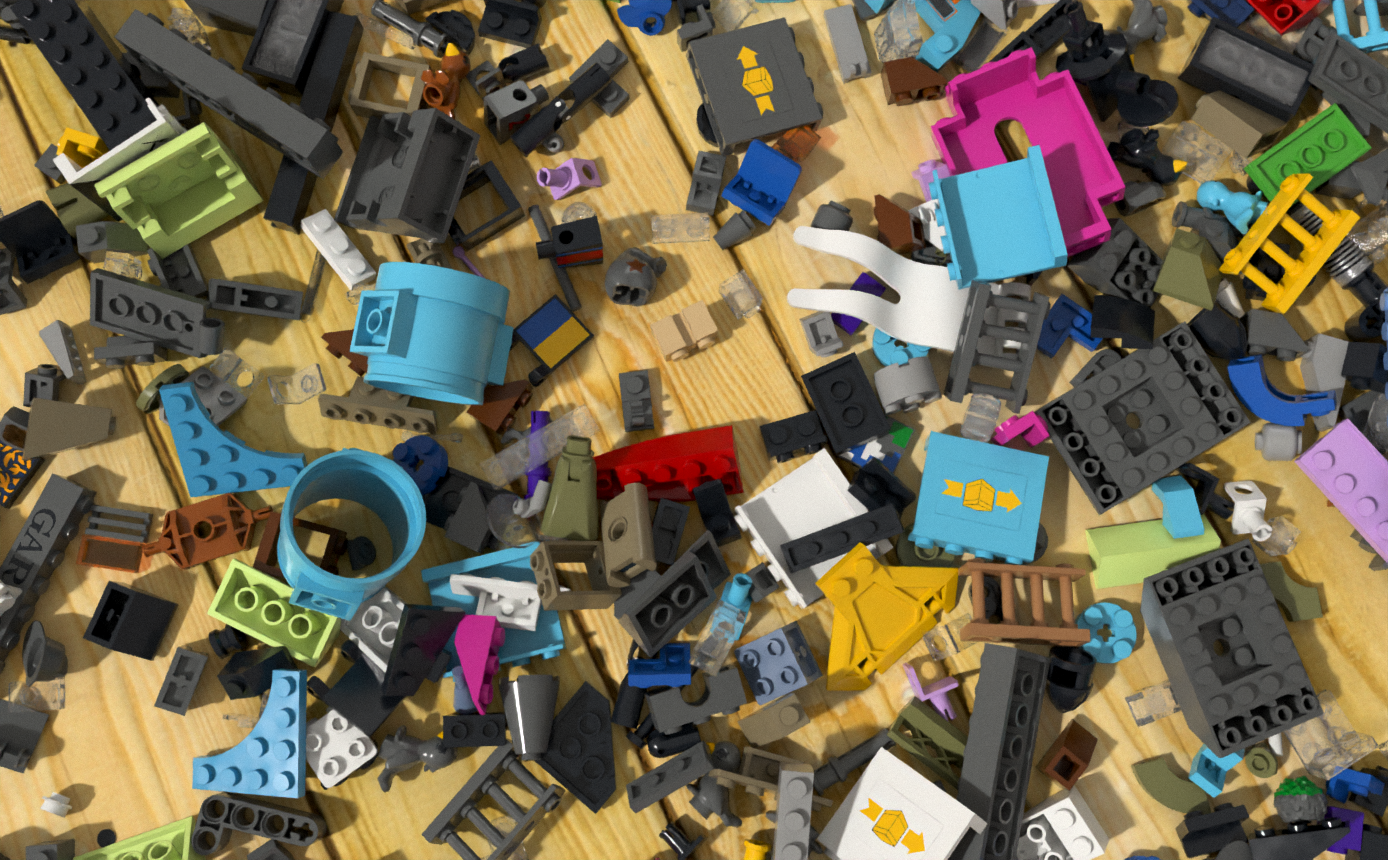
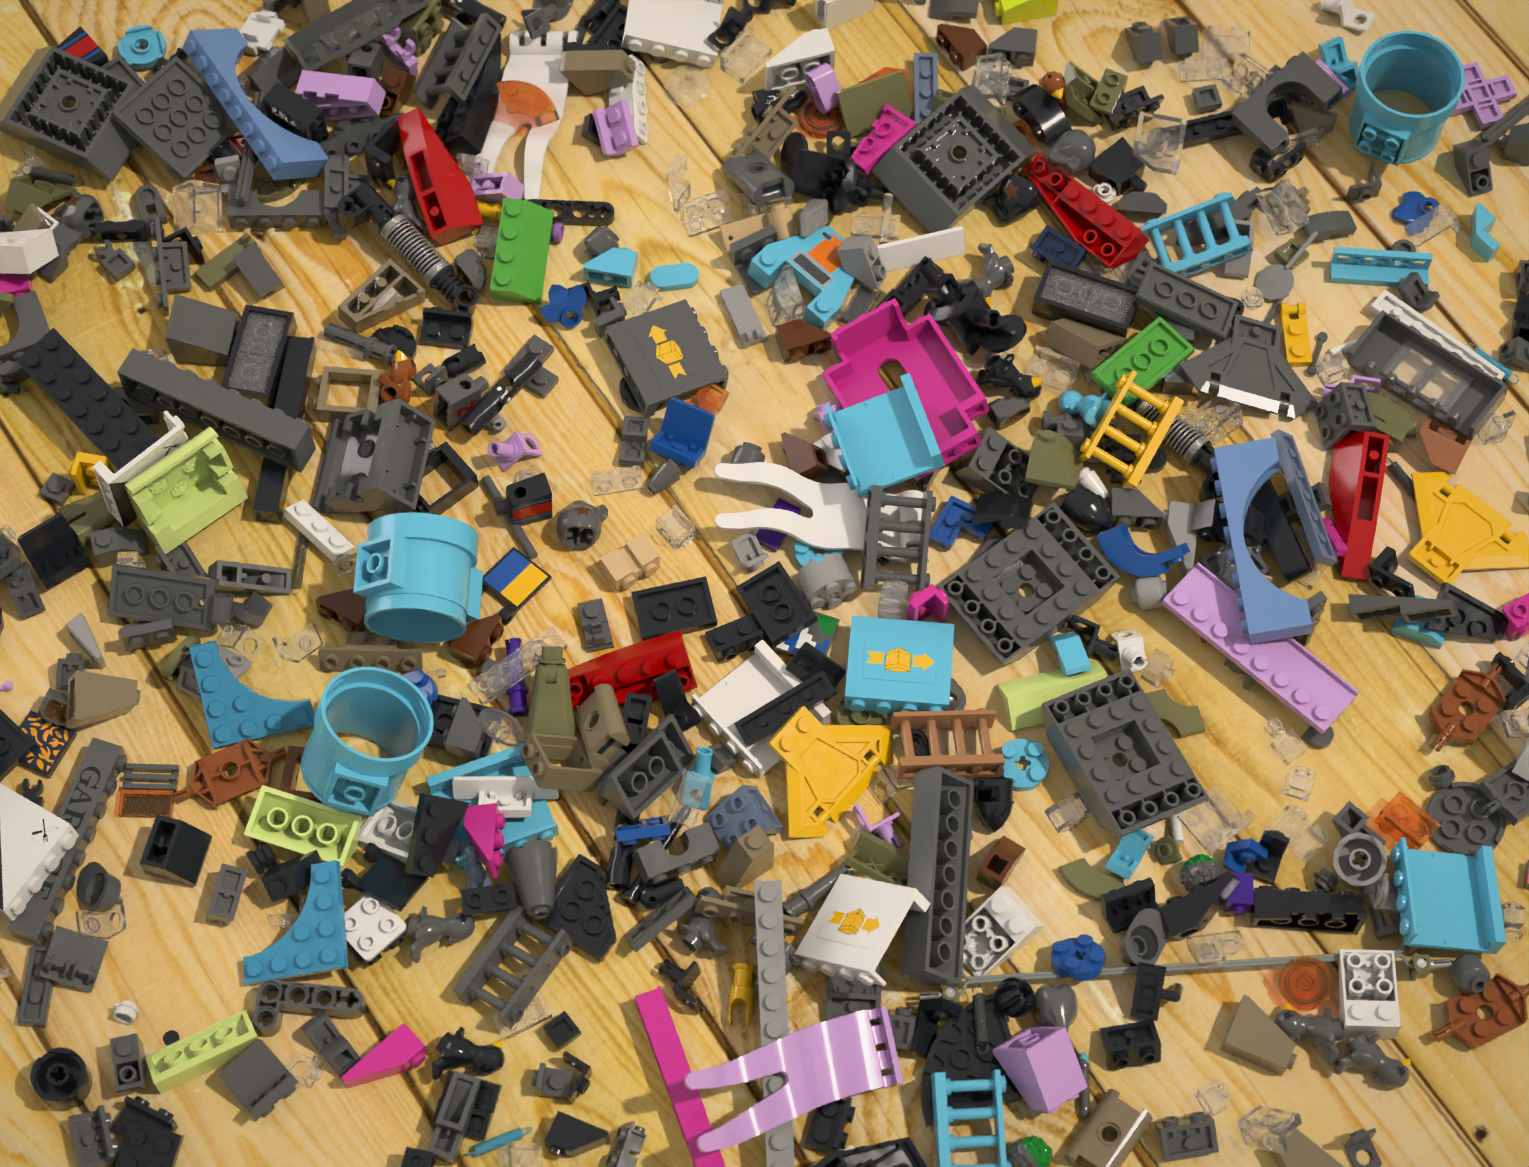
camera: 10 degrees left, 15 degrees down
(249, 340) = (253, 611): none -> dark grey bracket
(534, 504) = (520, 711): light grey arm -> none
(728, 393) = (674, 608): none -> black plate

